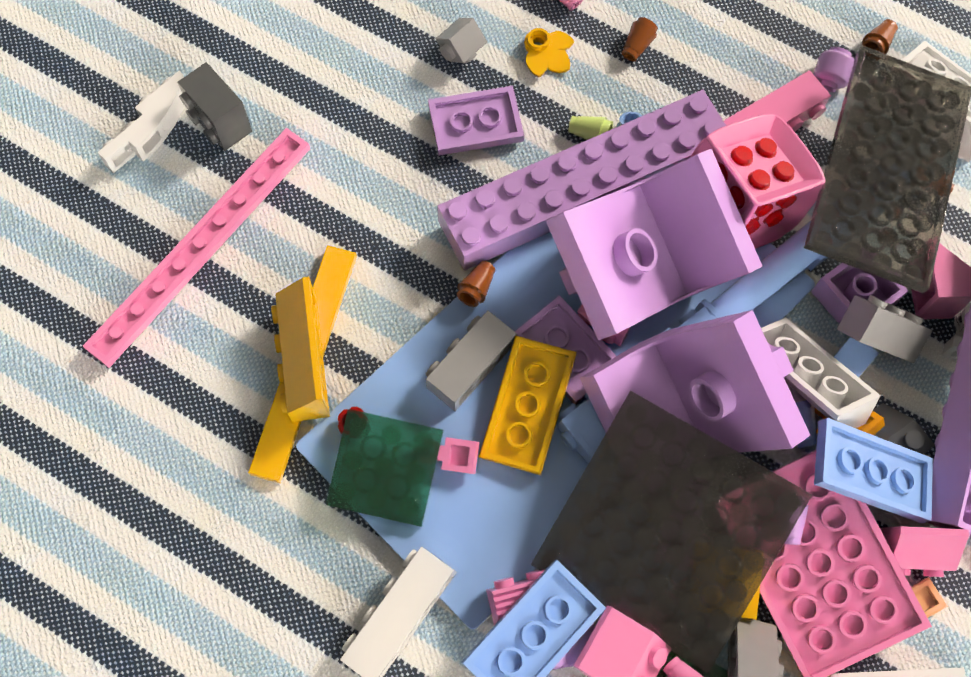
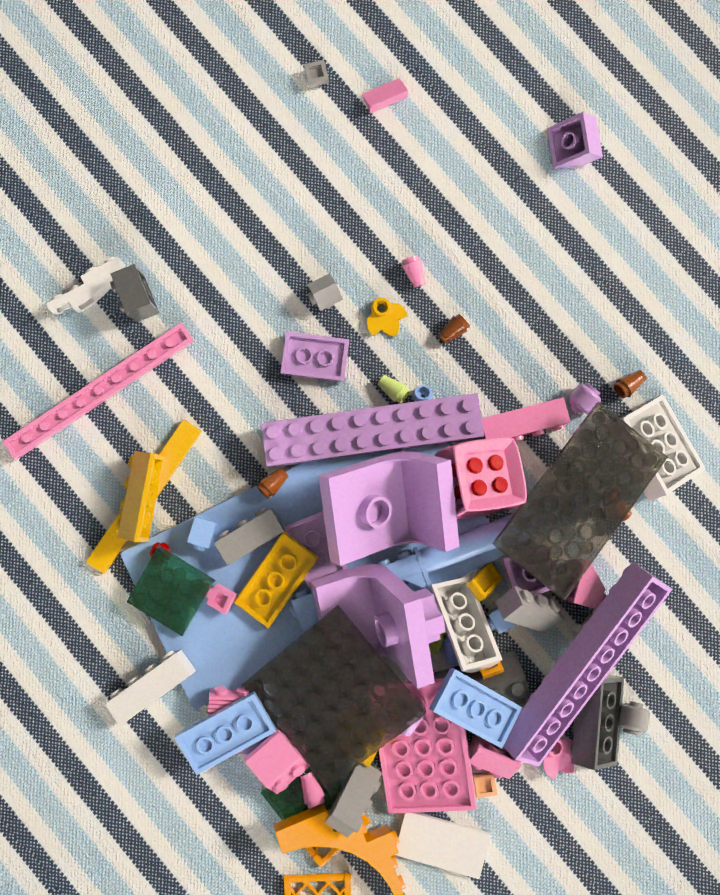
camera: 20 degrees right, 15 degrees up
(404, 376) = (202, 533): none -> light blue brick
(807, 319) = (484, 581): none -> yellow tile

